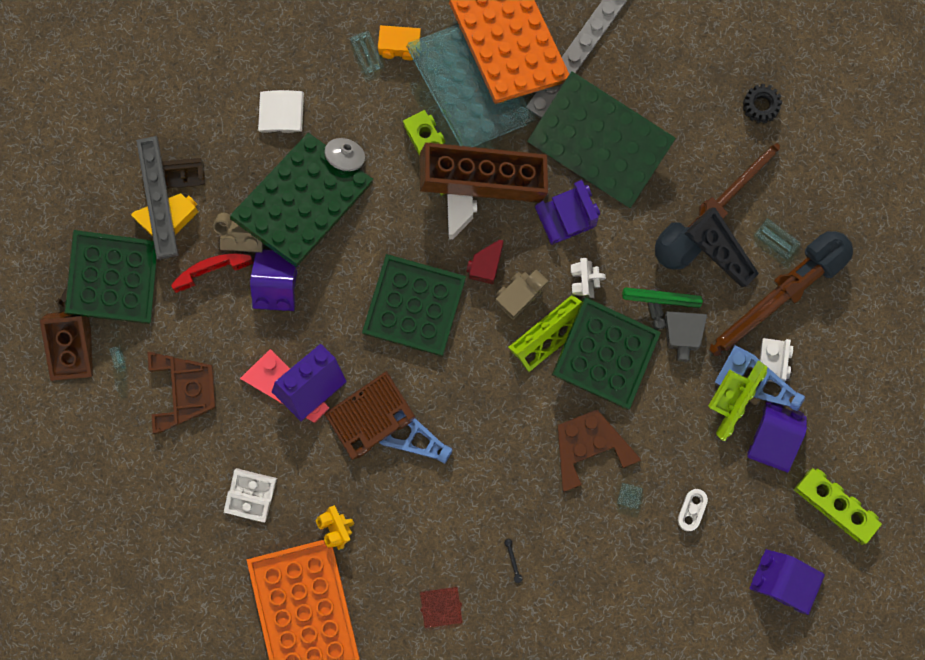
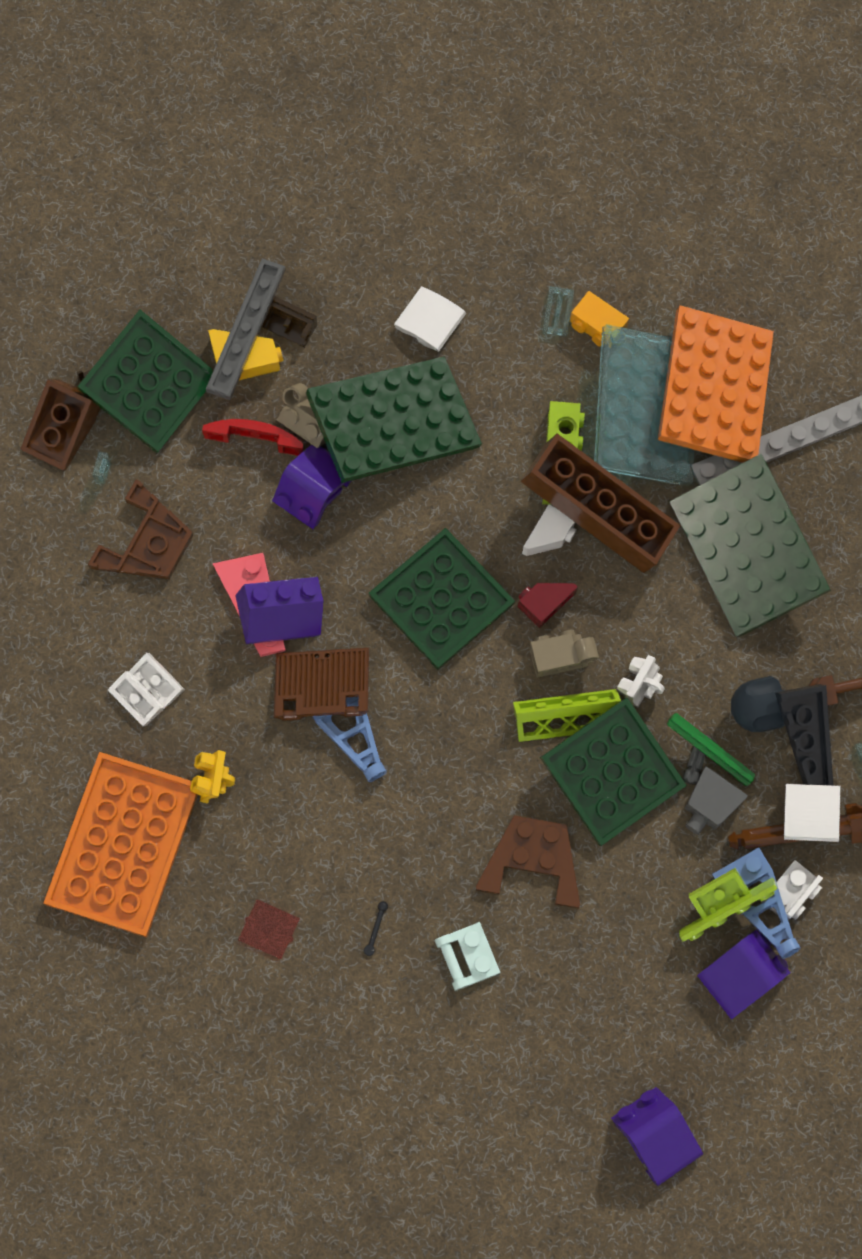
camera: 25 degrees right, 5 degrees down
(344, 154) = (467, 400): light grey dish -> none
(568, 213) = (665, 601): dark purple piece -> none
(590, 534) = (476, 954): none -> light aqua plate
(629, 496) = (543, 938): clear light blue tile -> none
(692, 510) = (601, 994): white plate -> none
(756, 299) = (812, 812): none -> white slope
(868, 520) = (760, 1105): lime brick -> none

